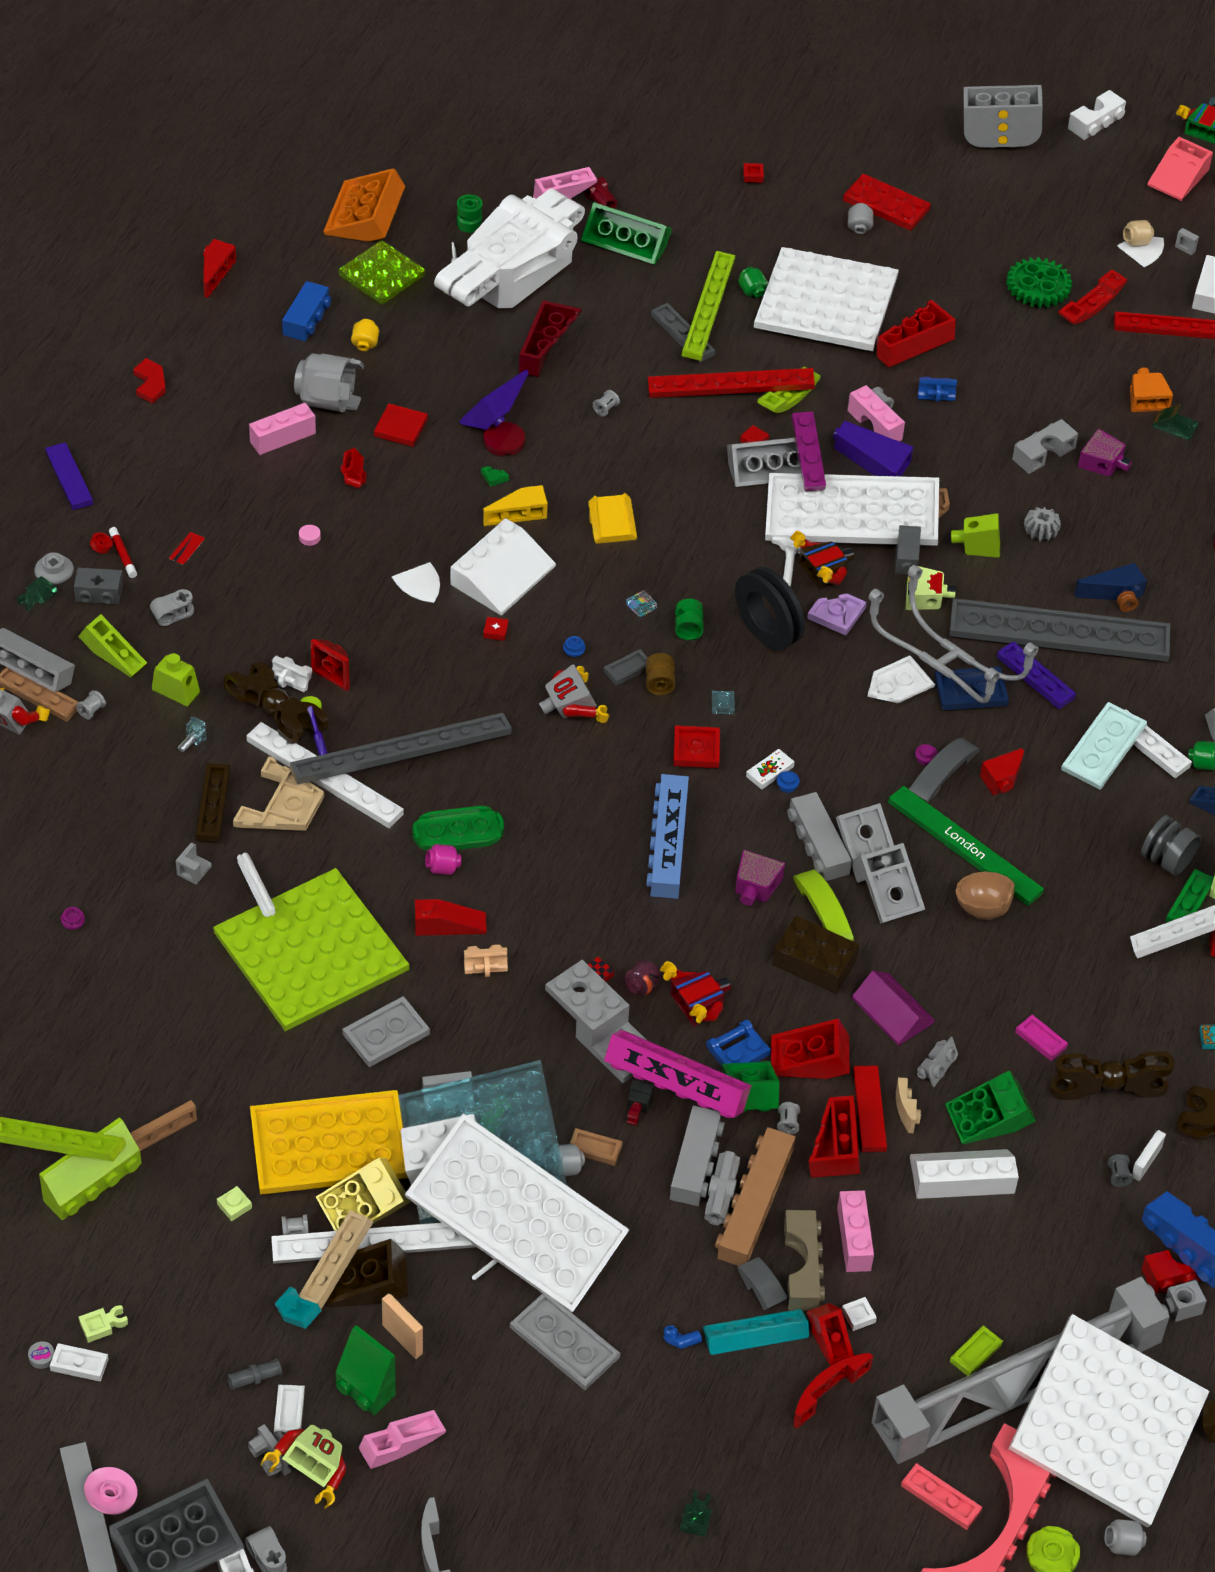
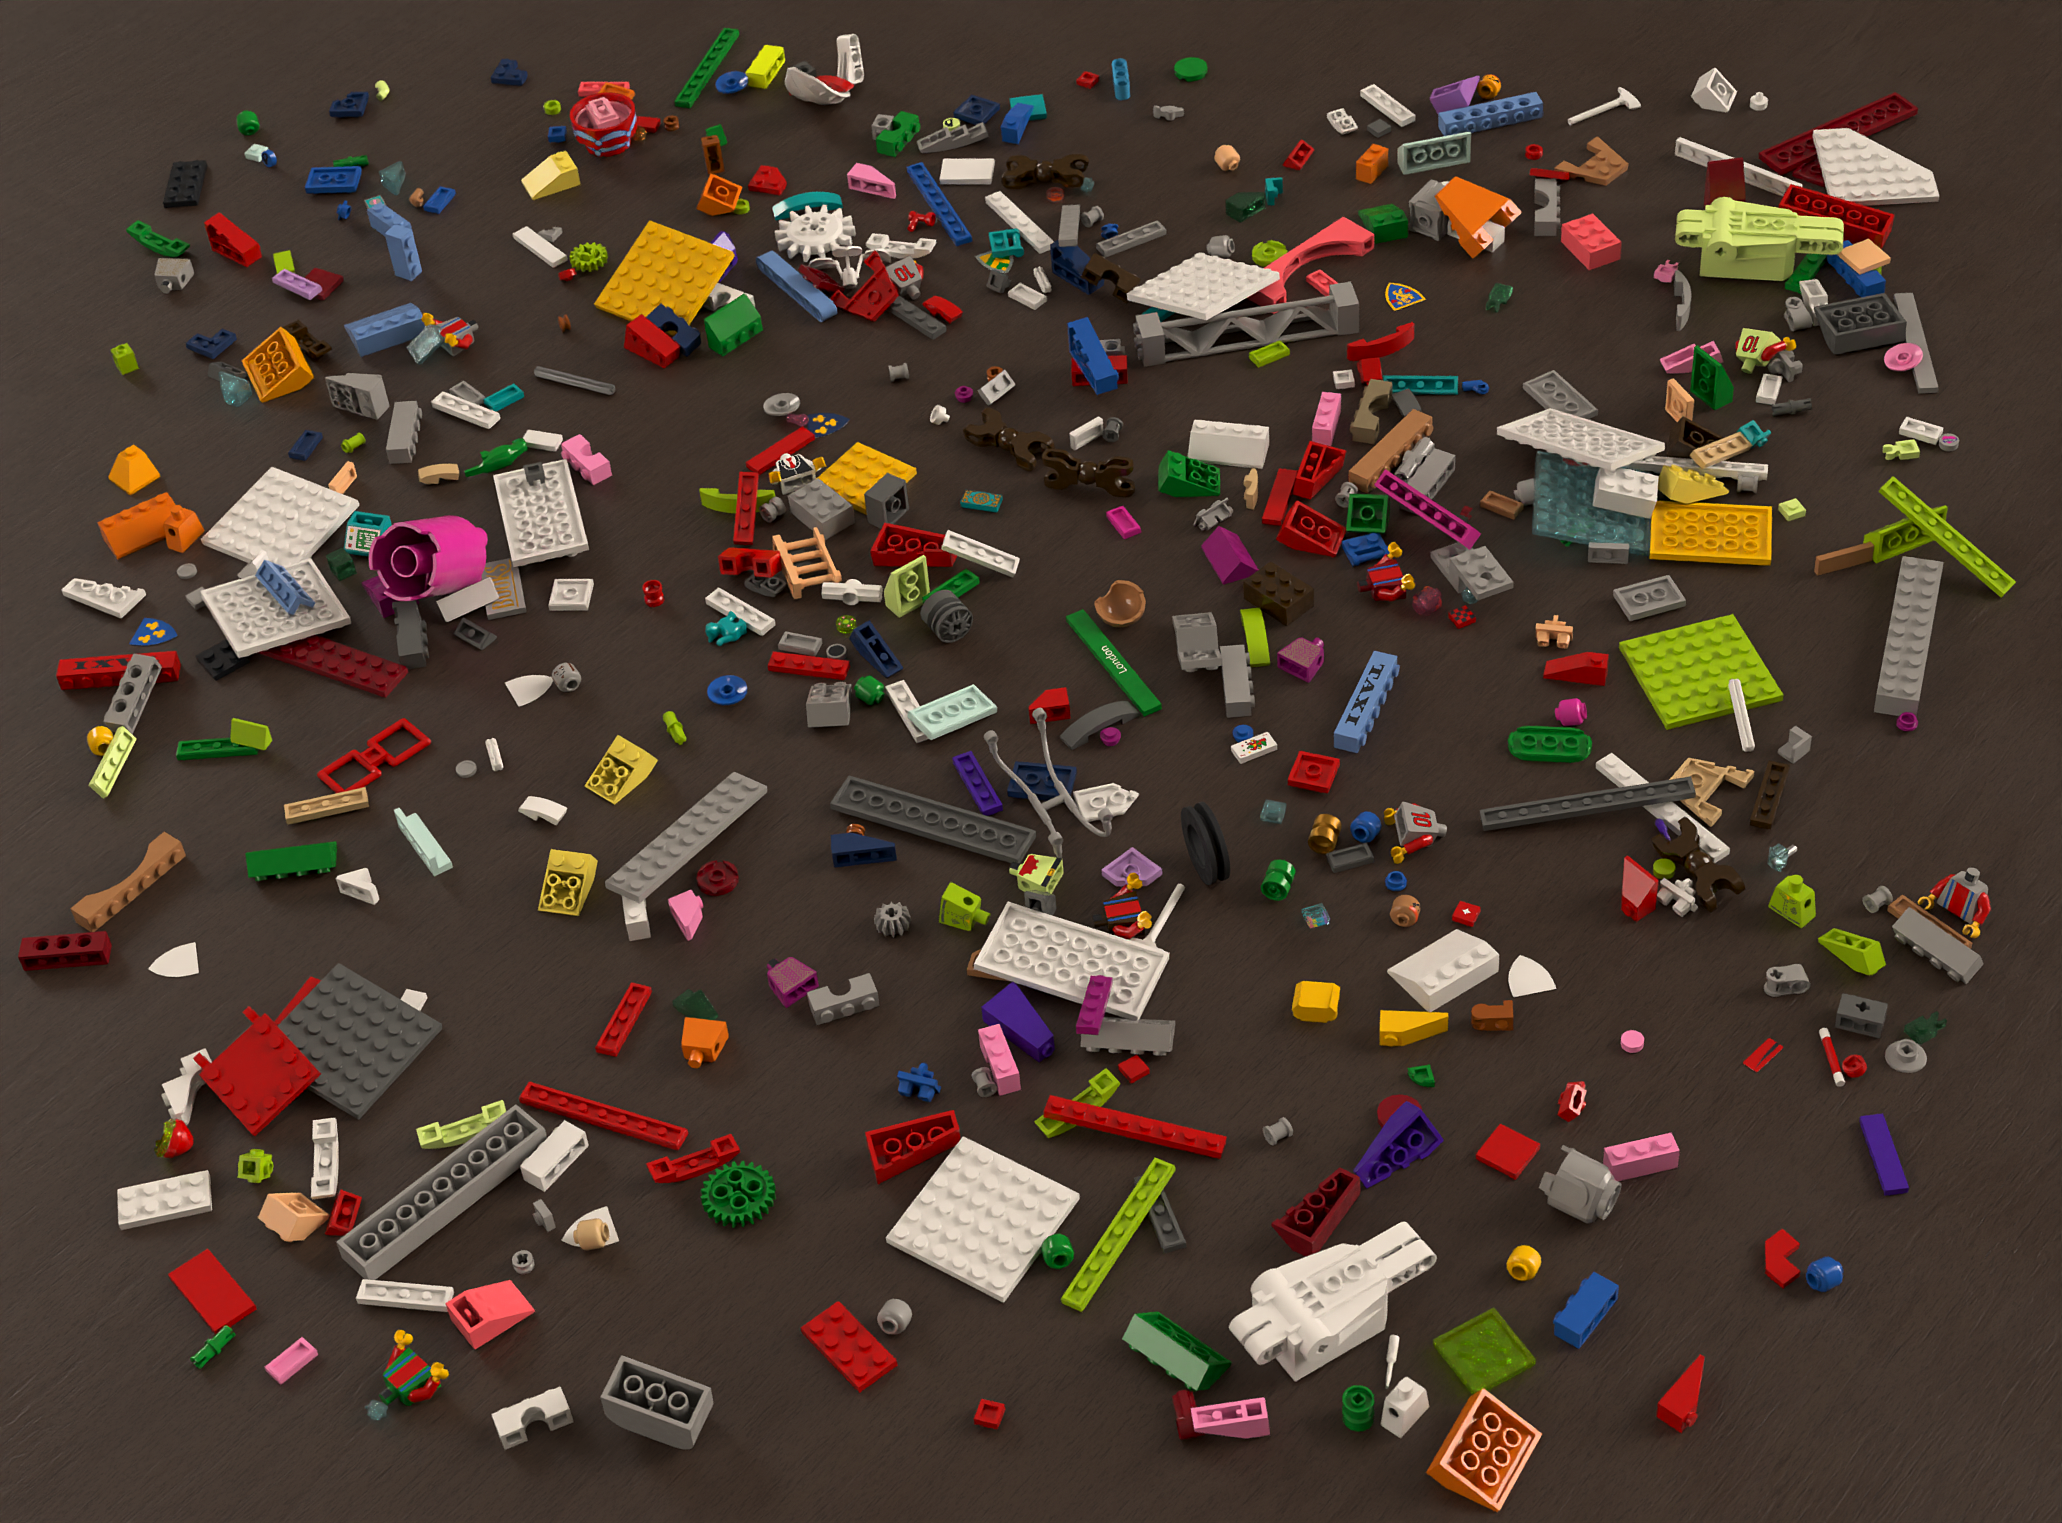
camera: 155 degrees left, 5 degrees down
(76, 1024) = (1908, 636): none -> light grey brick
(112, 365) = (1824, 1274): none -> blue head
(433, 219) = (1404, 1407): none -> white torso
(442, 530) = (1493, 1017): none -> dark orange leg
(555, 613) = (1405, 908): none -> medium nougat head
(621, 691) = (1365, 827): none -> blue head
(835, 1505) = (1401, 296): none -> sticker
(1181, 213) = (522, 1256): none -> light grey bush

